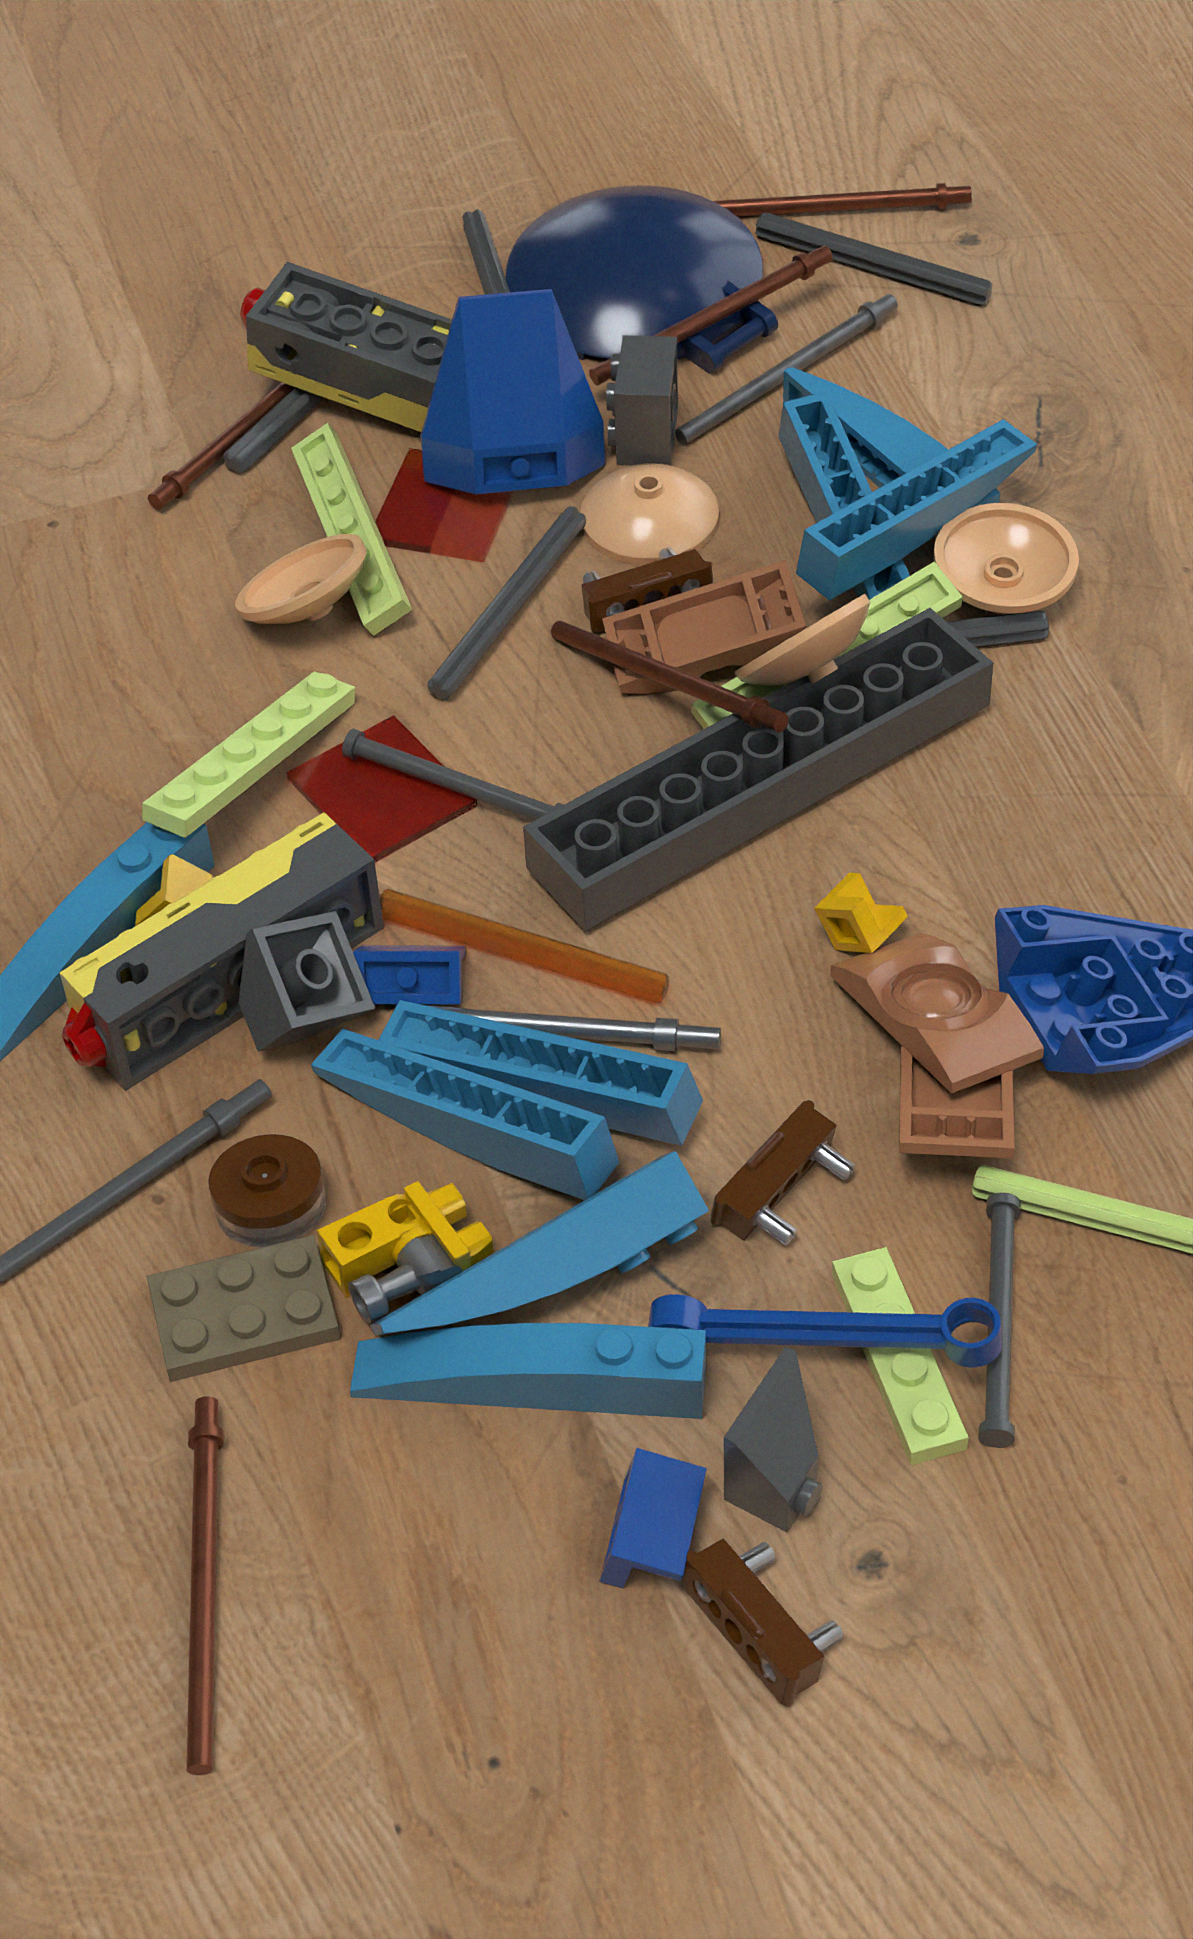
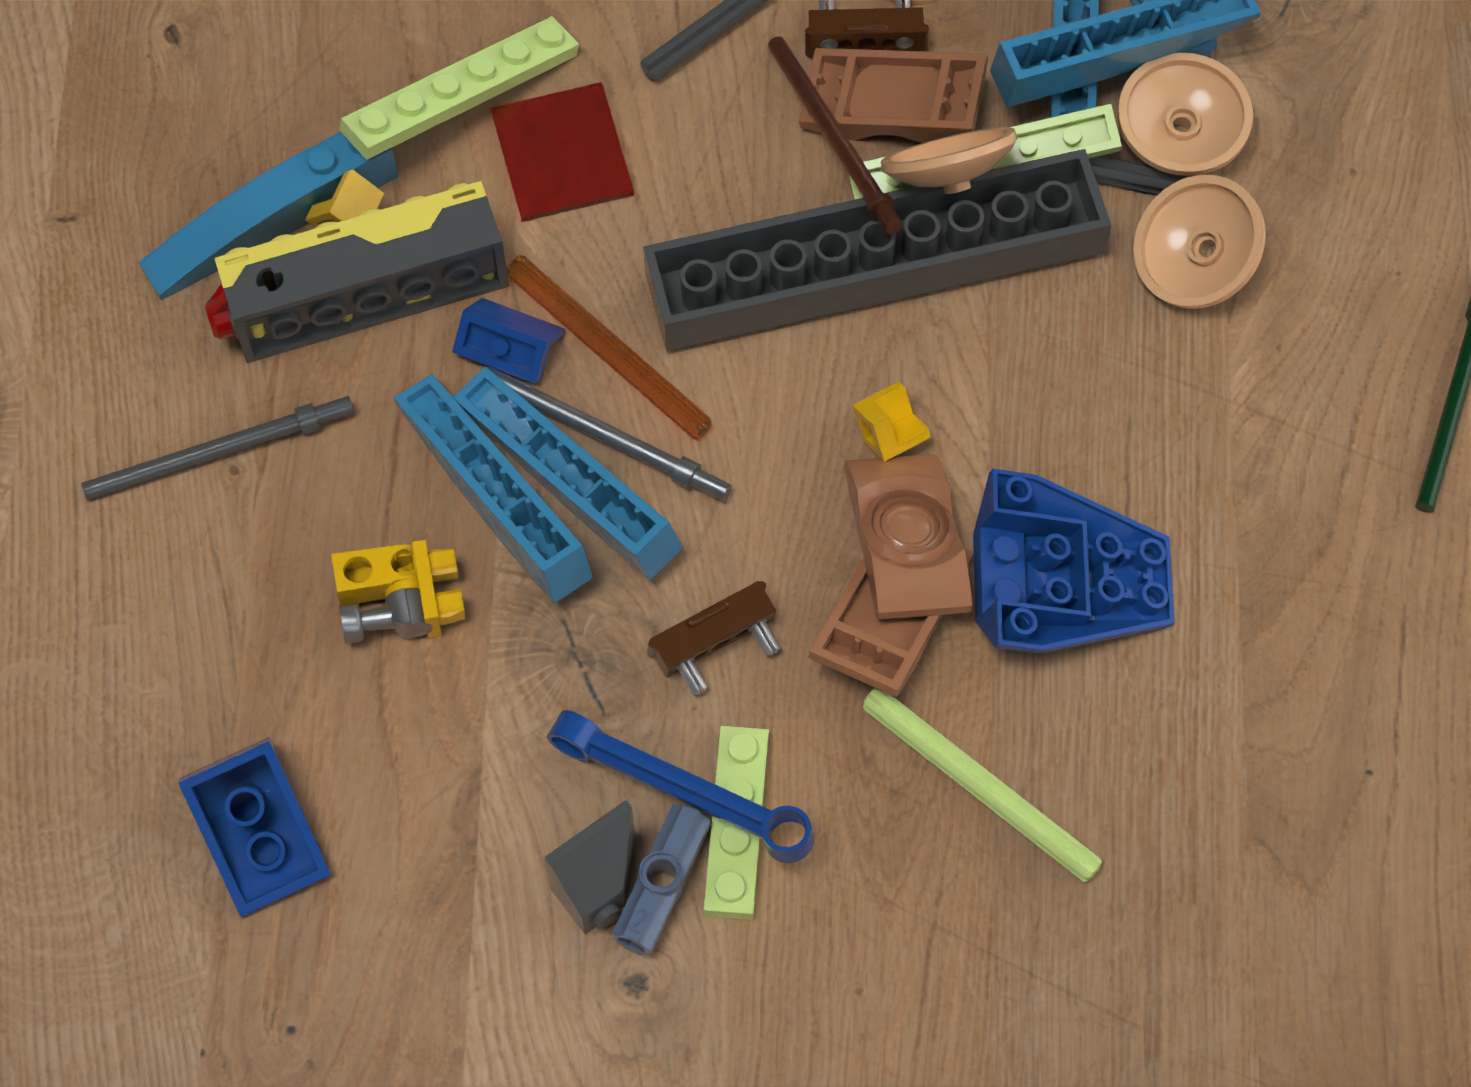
camera: 20 degrees right, 15 degrees up
(205, 1440) = (185, 695): copper bar -> none
(242, 1308) = (258, 591): dark tan plate -> none
(267, 1190) = (314, 499): reddish brown piece -> none
(300, 980) = (410, 322): dark grey slope -> none
(353, 1548) = (254, 826): none -> blue slope
(357, 746) = (555, 106): dark grey bar -> none
(540, 1368) = (455, 731): dark azure slope -> none
(573, 1247) = (511, 642): dark azure slope -> none
(653, 1518) = (483, 890): blue panel -> none
(755, 1620) = (521, 996): reddish brown piece -> none
(849, 1463) = (651, 905): none -> sand blue piece
(996, 1429) = (876, 734): dark grey bar -> none
(1068, 638) = (1180, 229): none -> light nougat dish

